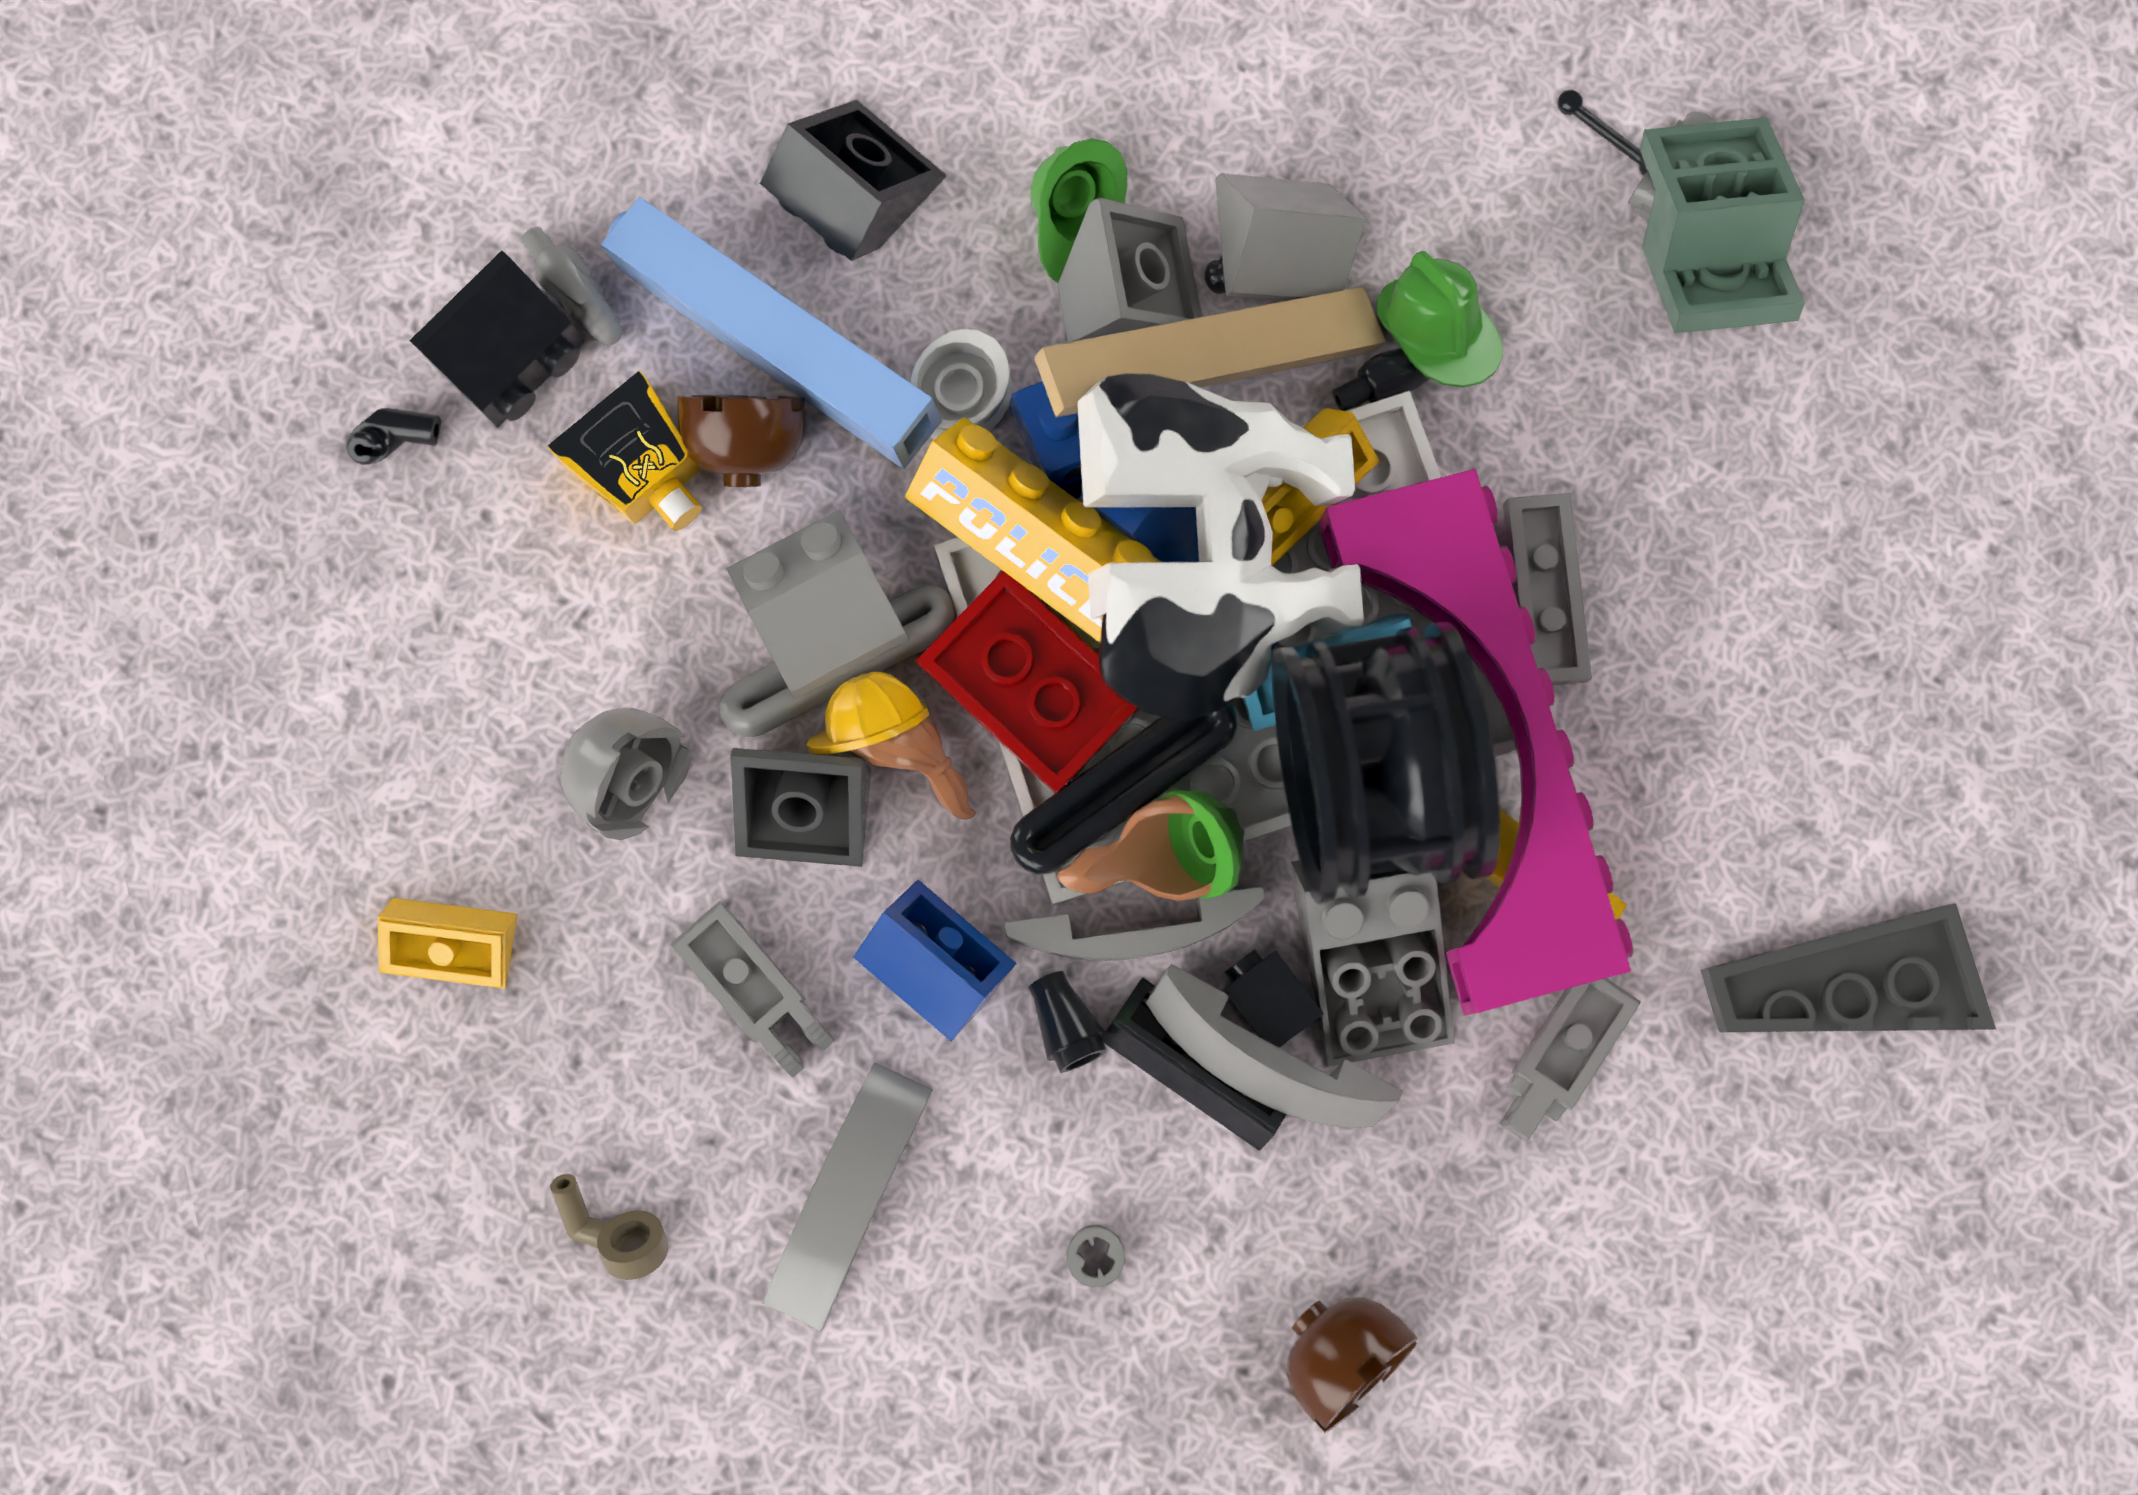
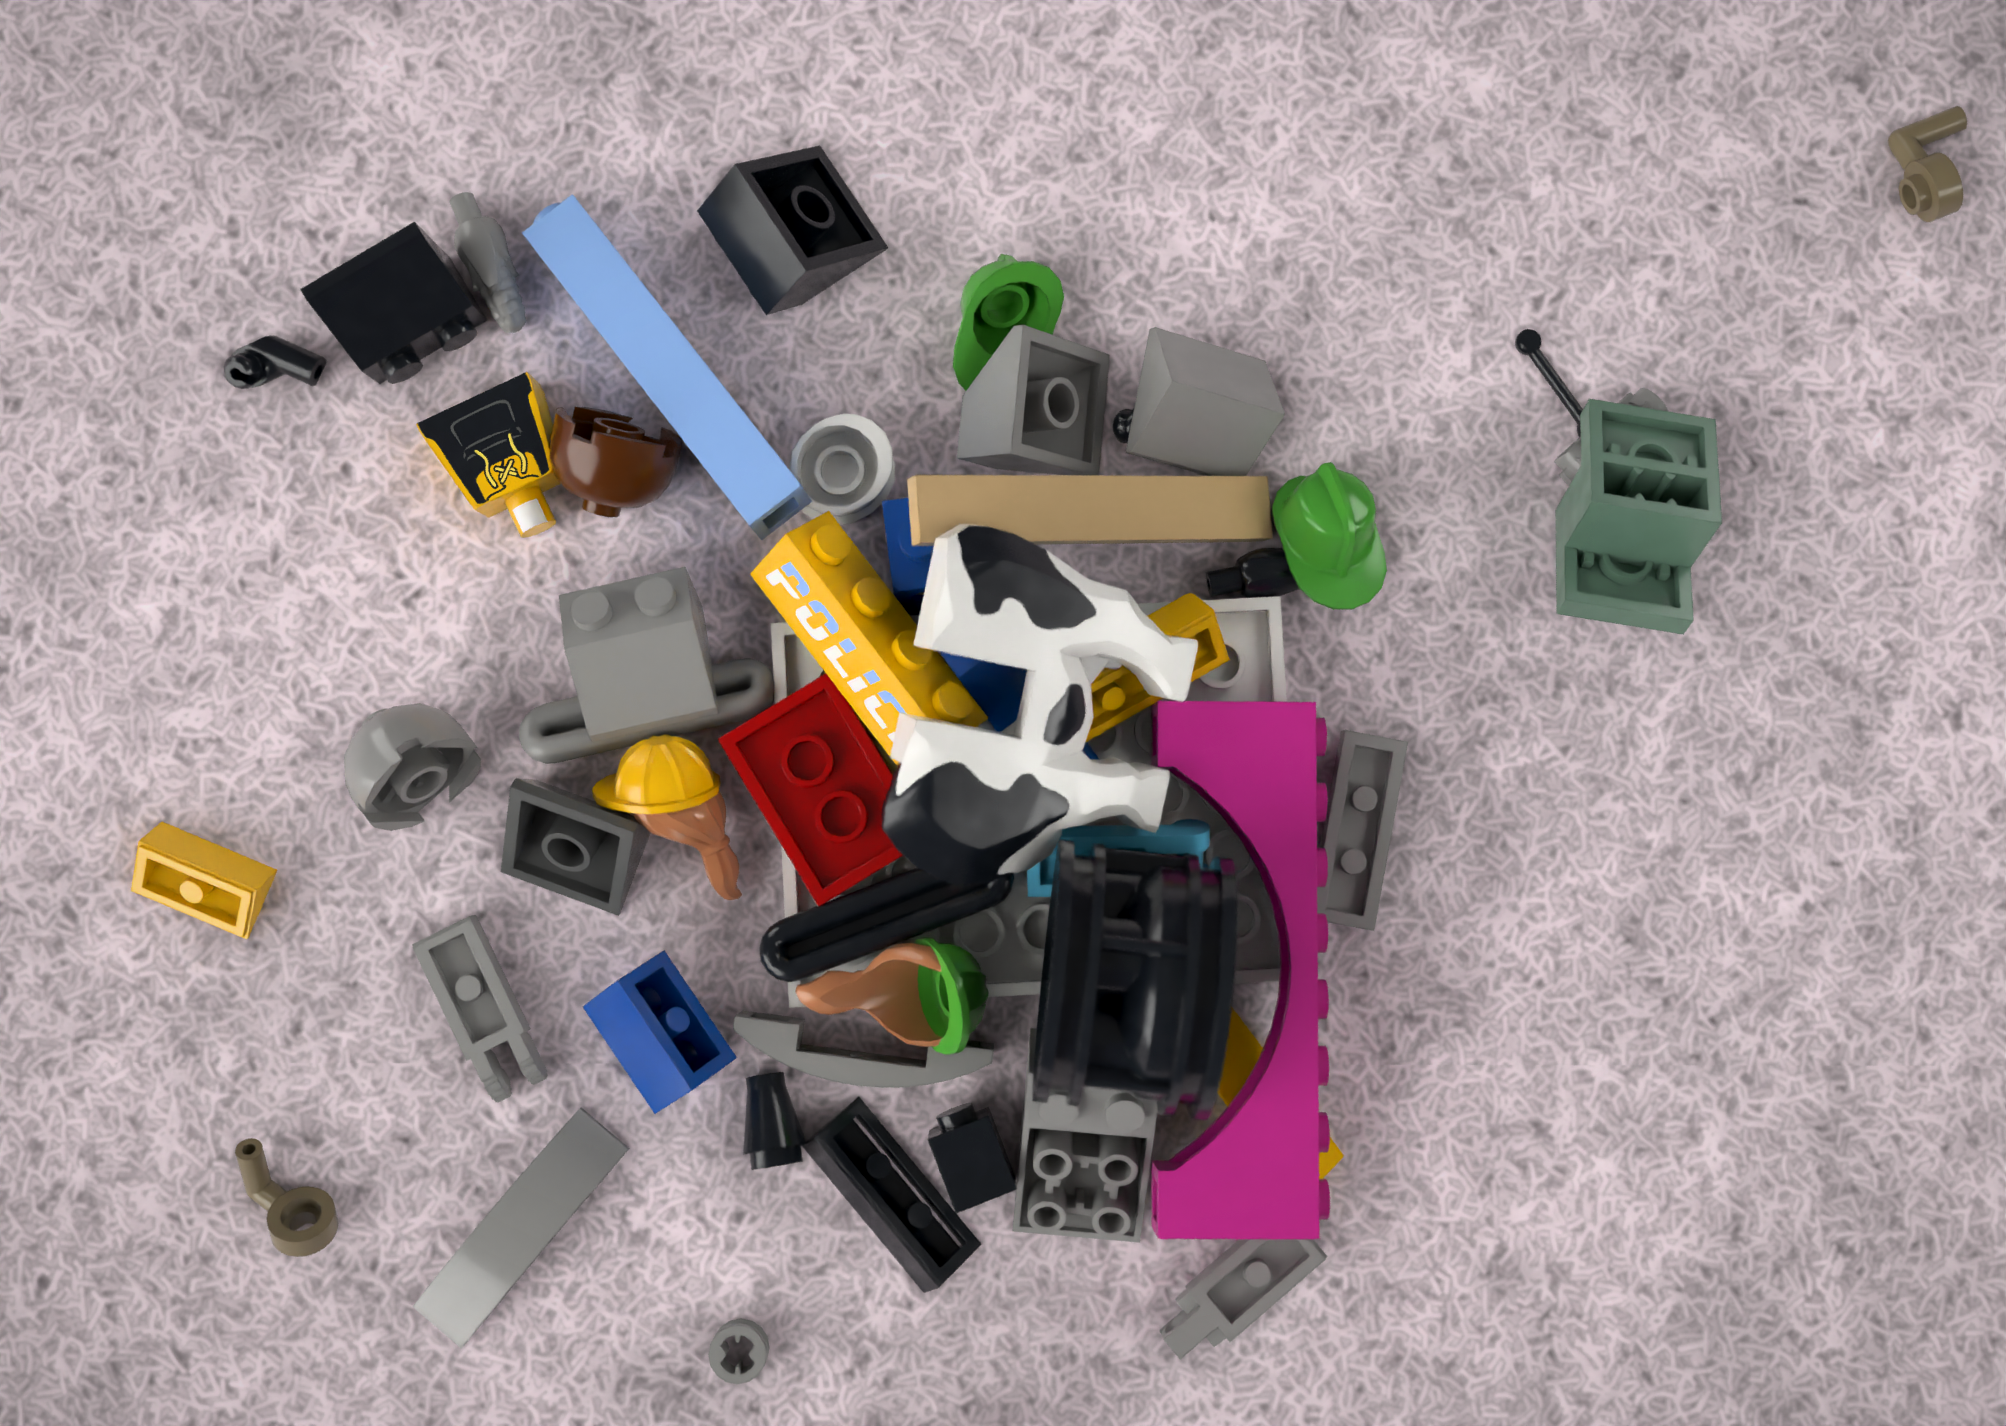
camera: 10 degrees right, 5 degrees up
(1257, 1068) = (891, 1156): light grey slope -> none
(1869, 978) = (1552, 1293): dark grey wing -> none

